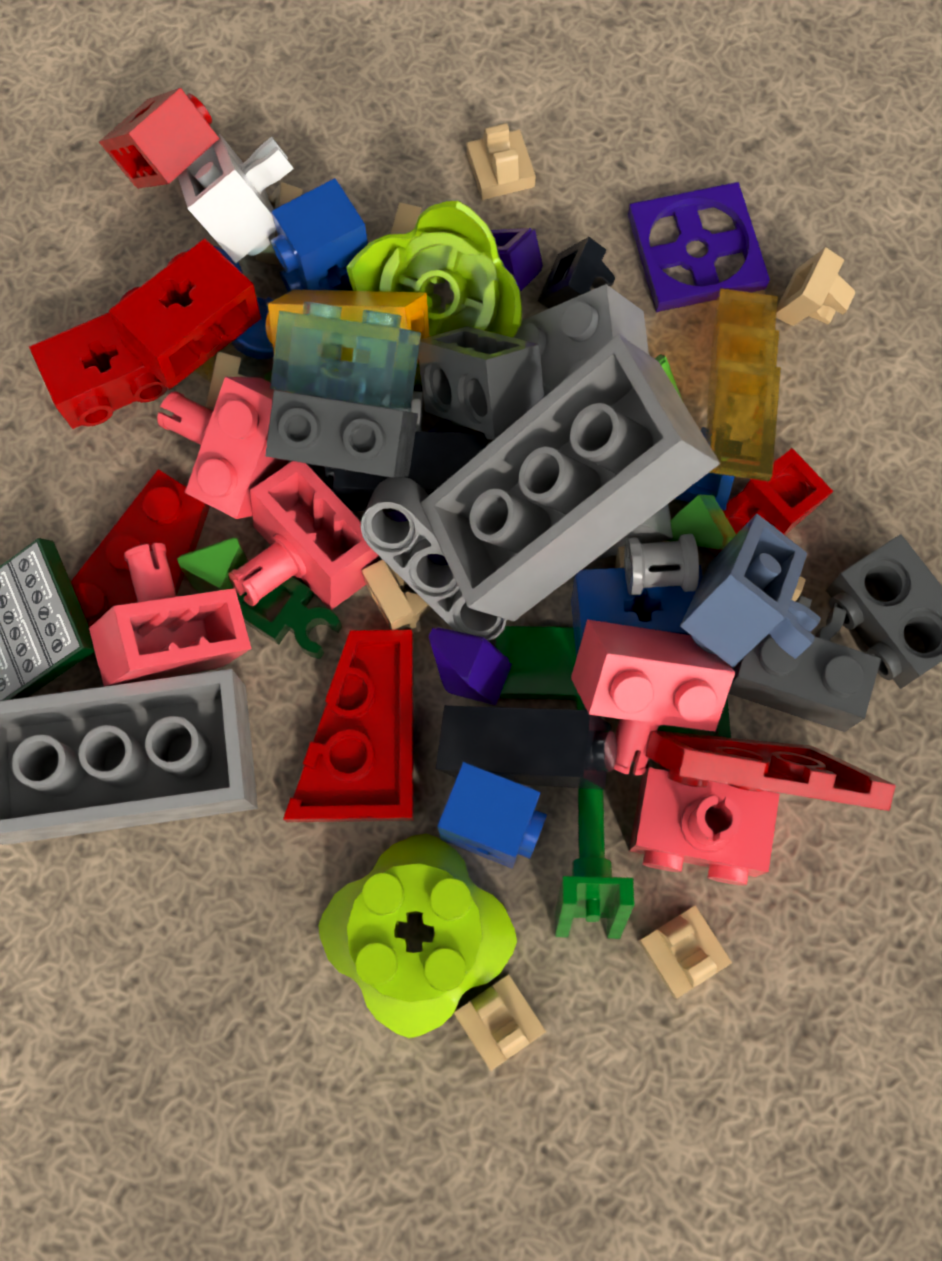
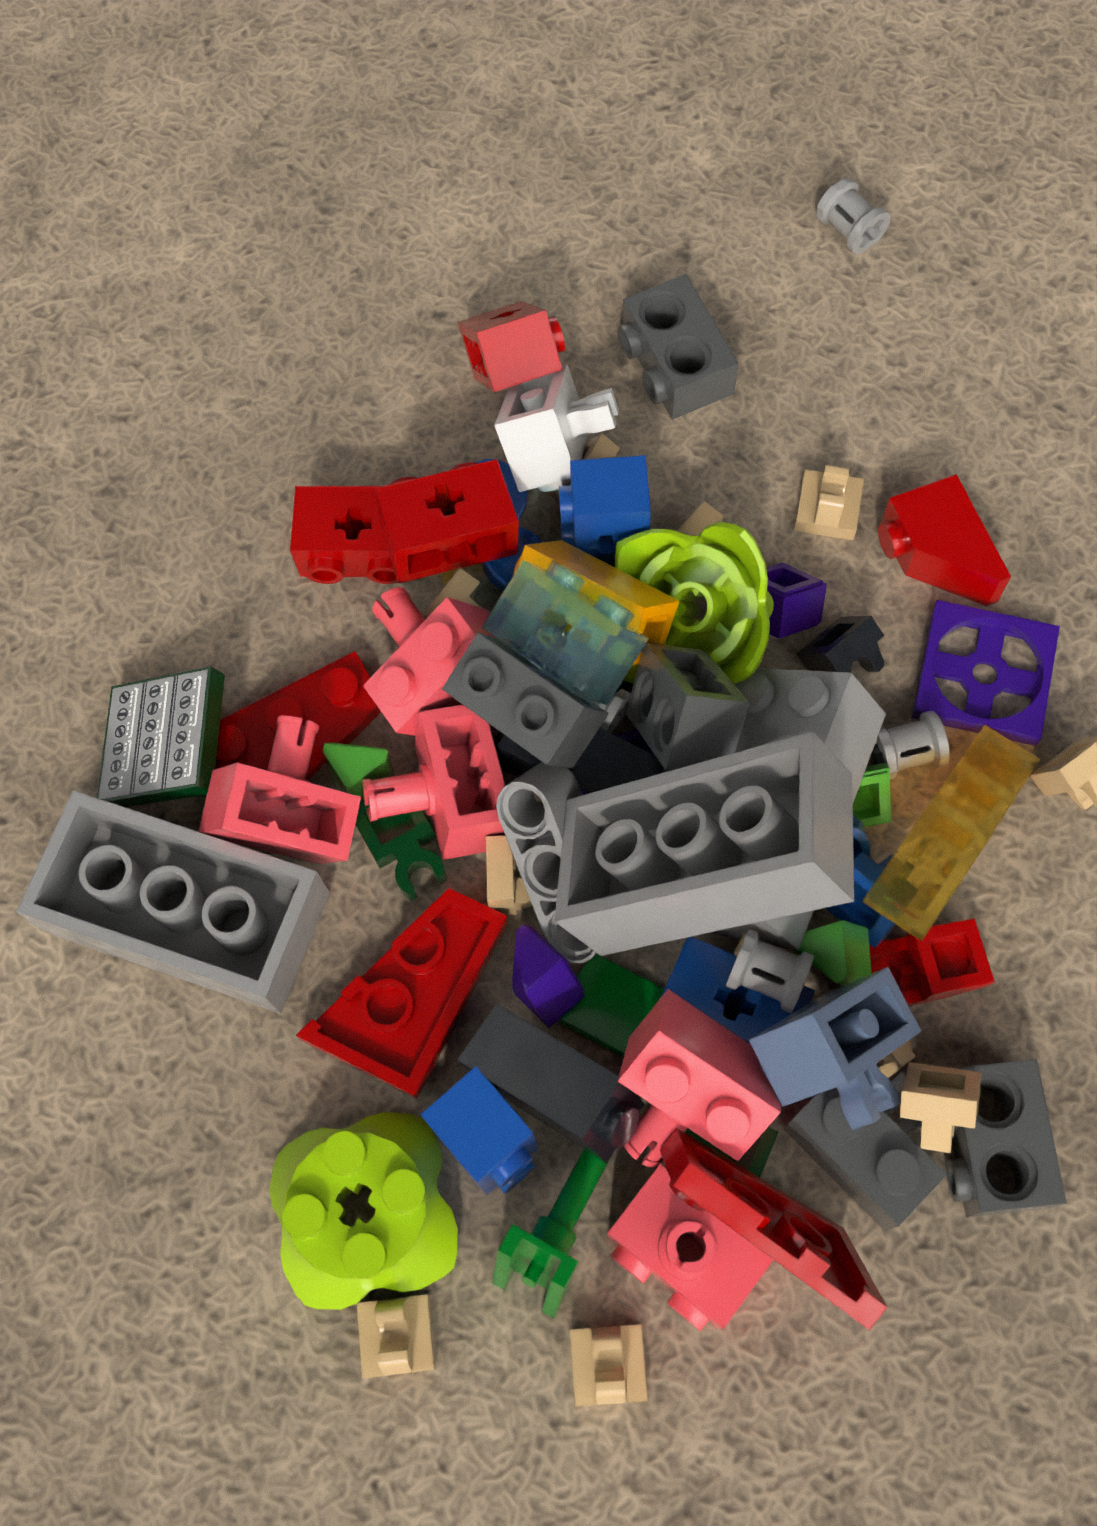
camera: 30 degrees right, 5 degrees down
(305, 83) = (686, 344): none -> dark grey brick
(613, 152) = (943, 541): none -> red slope
(675, 328) = (912, 744): none -> light grey bush
(850, 602) = (941, 1101): none -> tan tile

